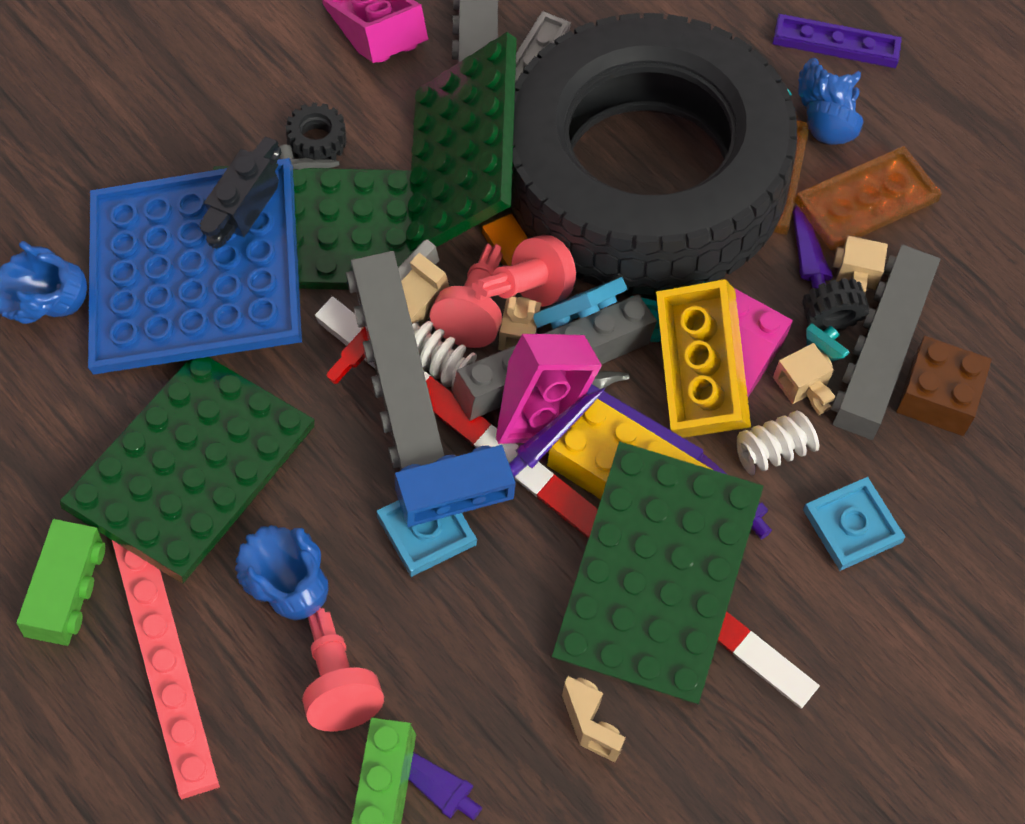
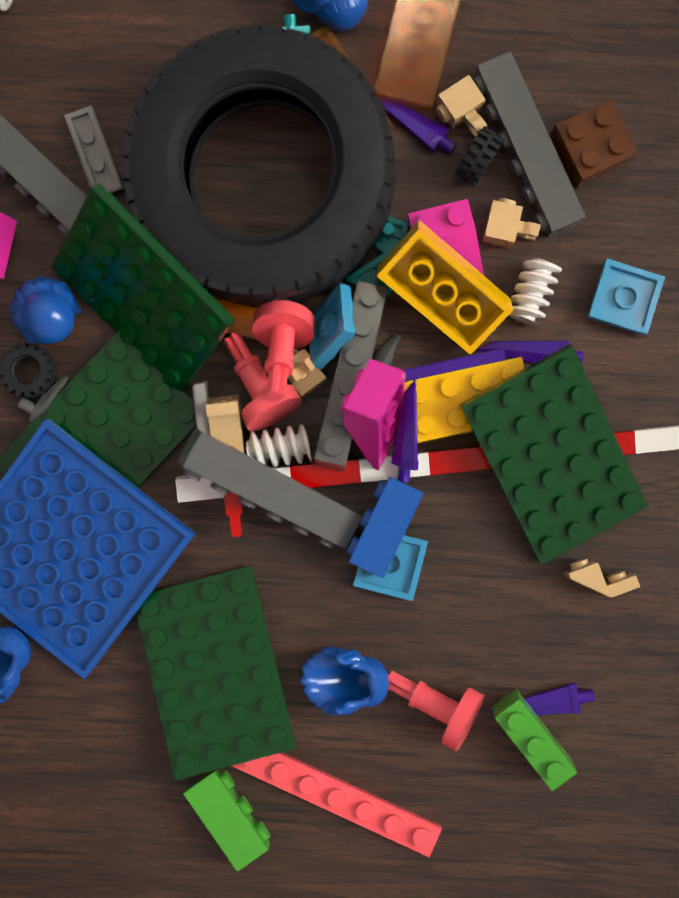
camera: 40 degrees left, 25 degrees up
(241, 193) = (49, 481): black hinge -> none
(377, 103) = (44, 310): none -> blue hair
(826, 342) = (495, 191): teal piece -> none

